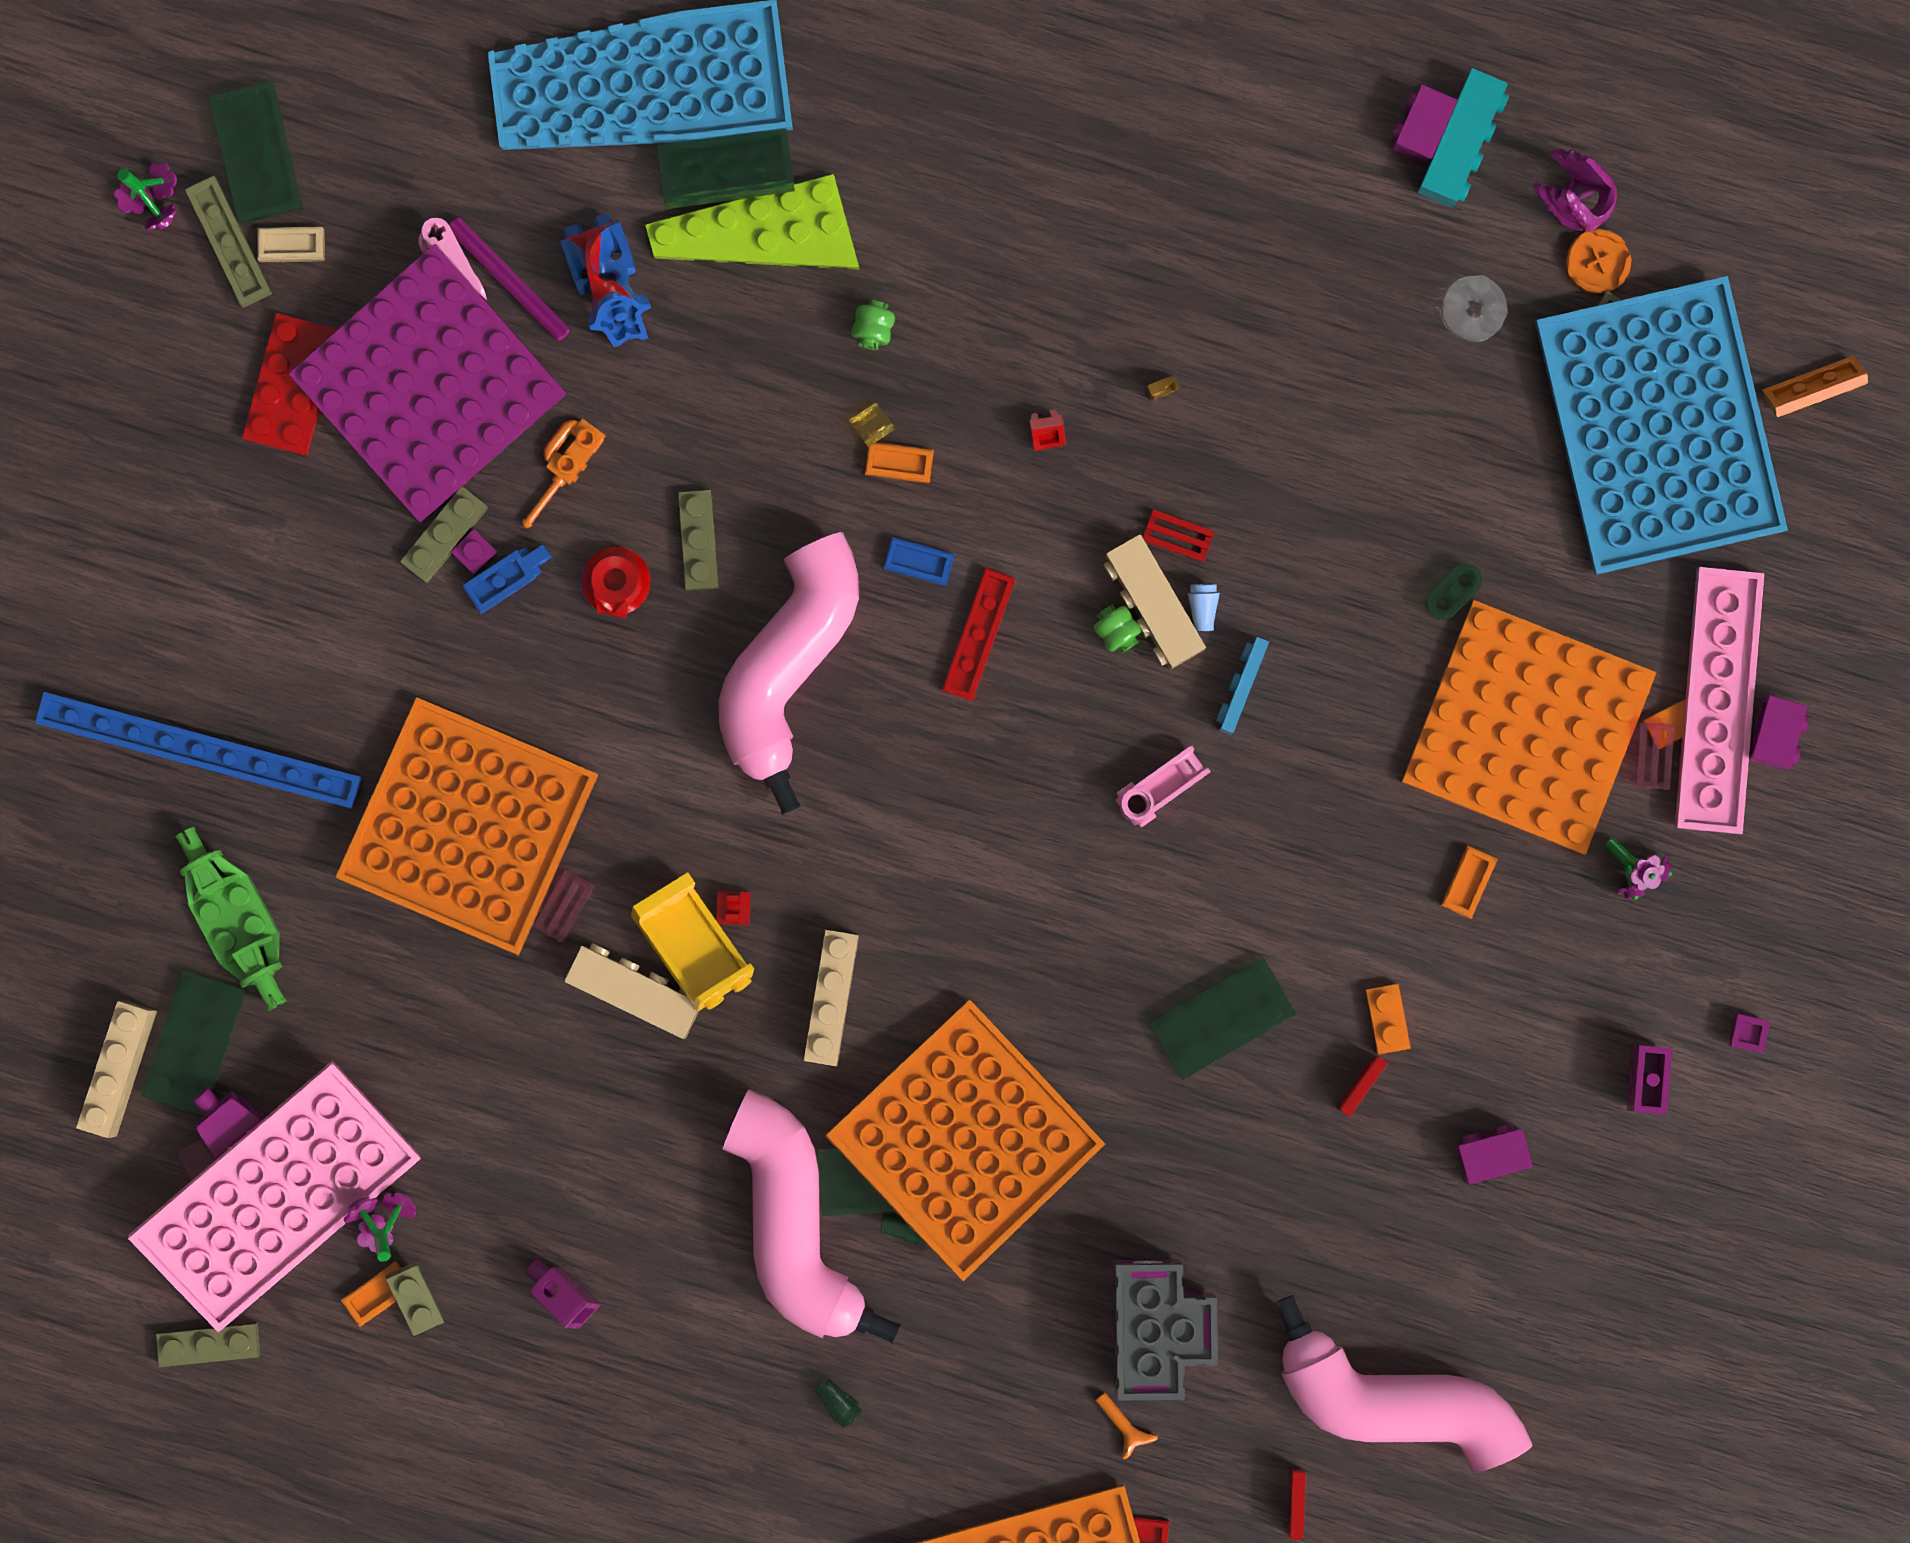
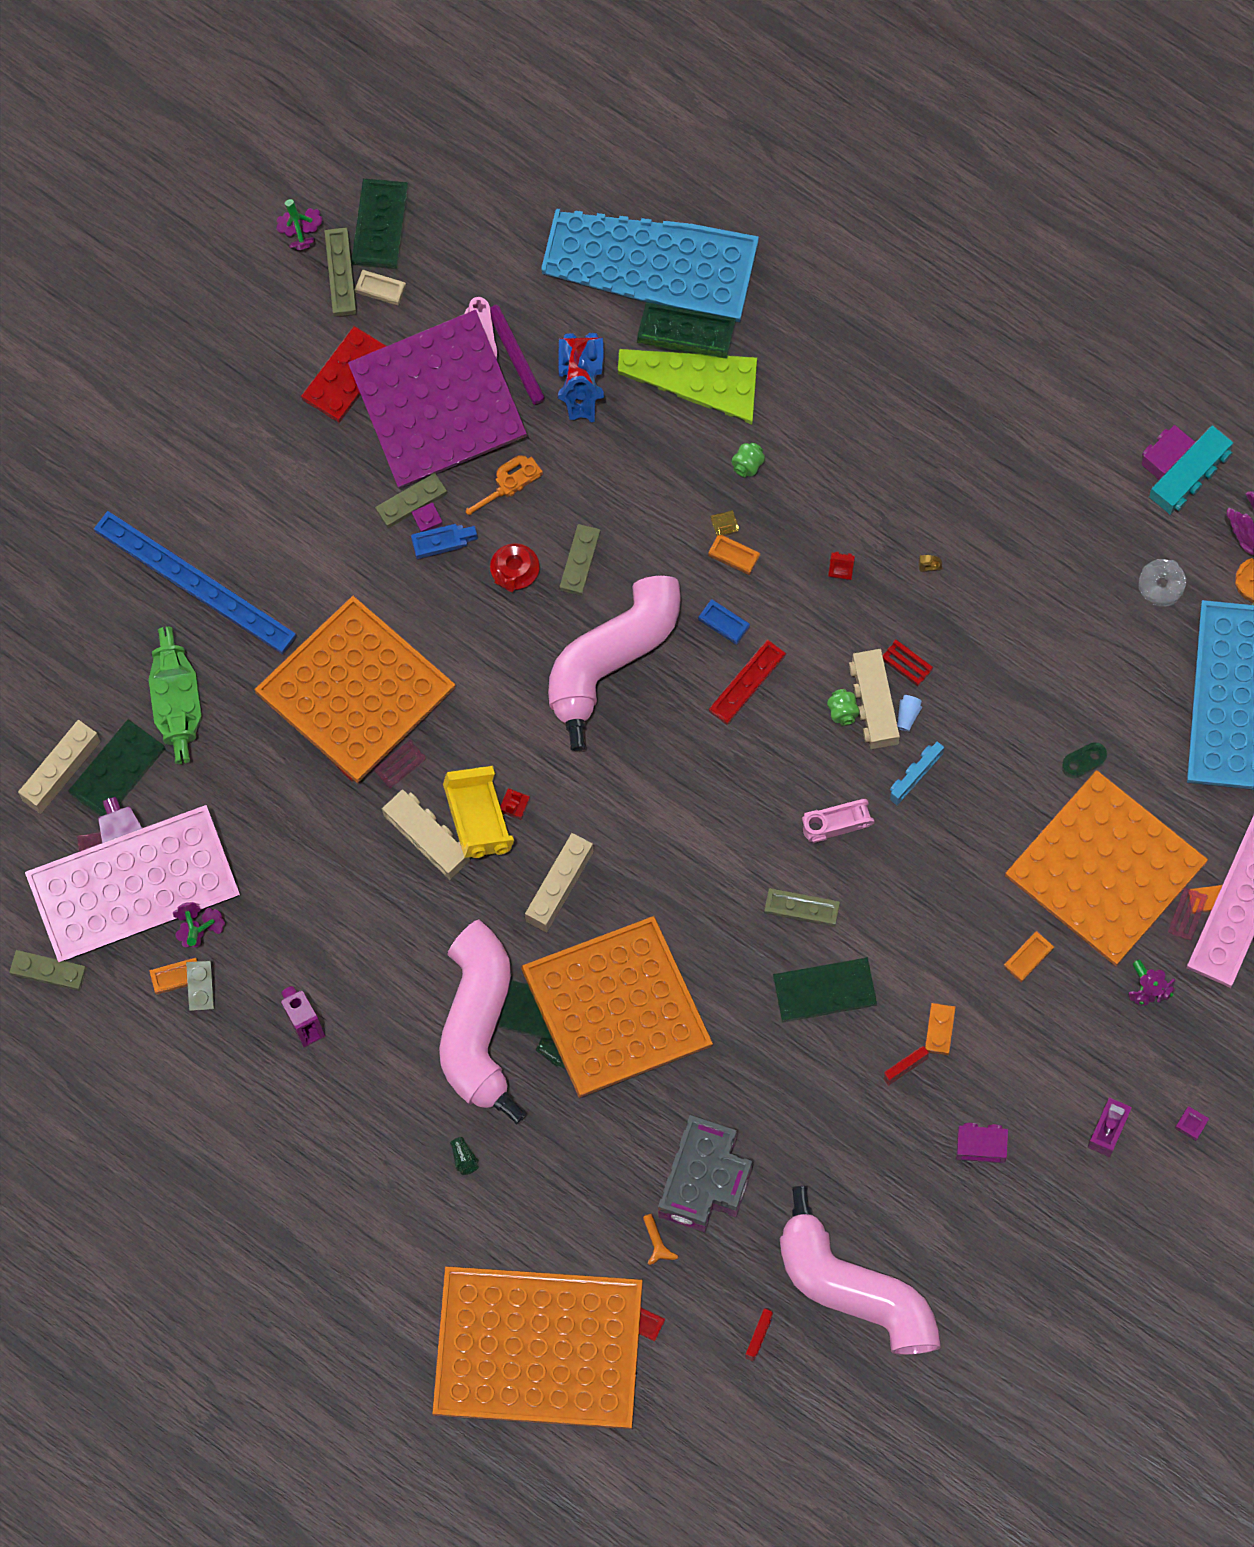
camera: 25 degrees right, 15 degrees down
(1156, 919) = (802, 907): none -> olive plate

